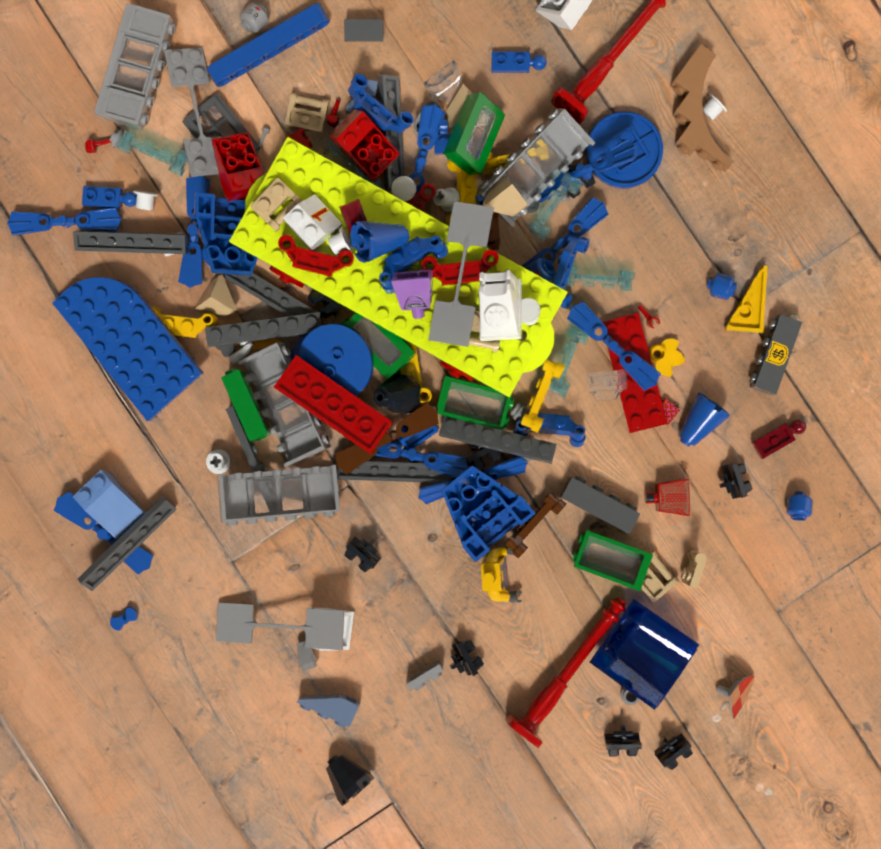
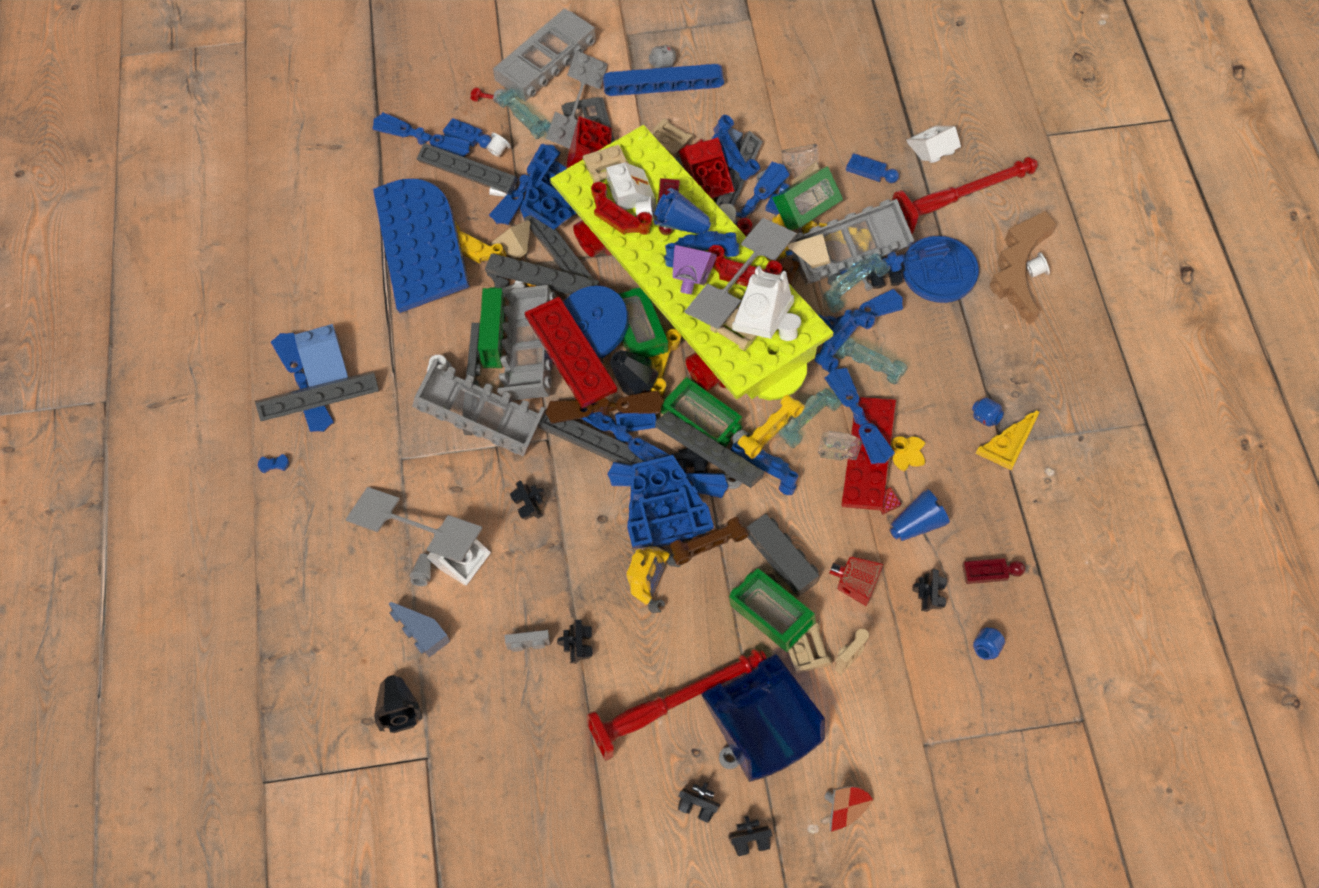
camera: 25 degrees right, 25 degrees down
(330, 306) = (612, 276): black hips -> none
(363, 30) = (750, 96): dark grey hinge -> none
(649, 318) = (904, 412): red hand -> none
(775, 354) = (1017, 492): dark grey brick -> none

